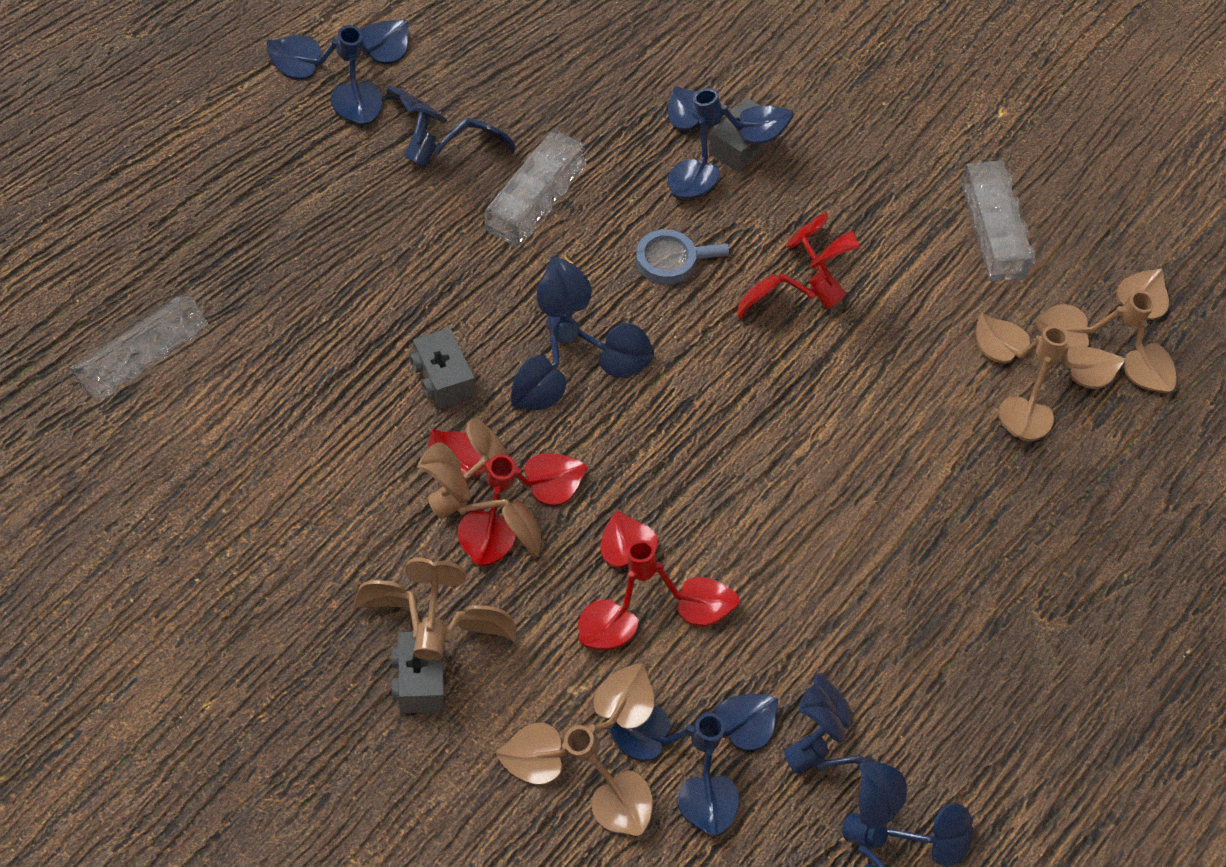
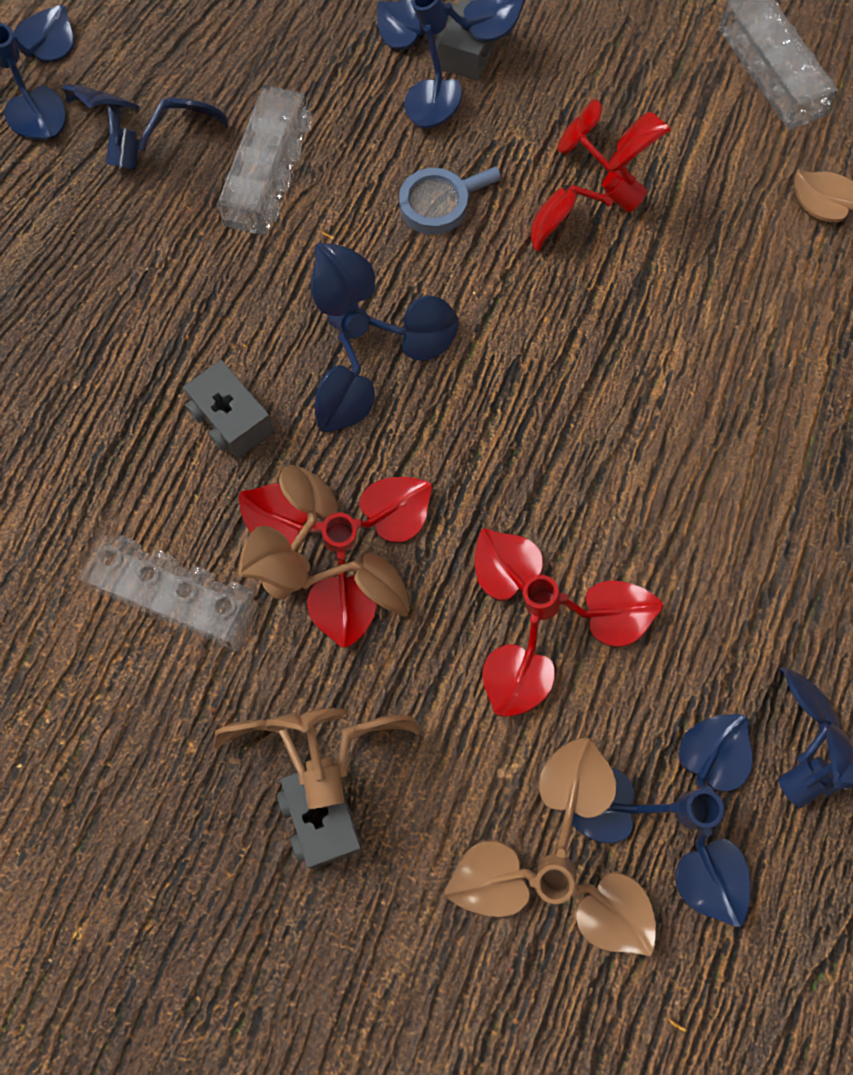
camera: 10 degrees left, 15 degrees up
(354, 487) = (170, 592): none -> clear brick

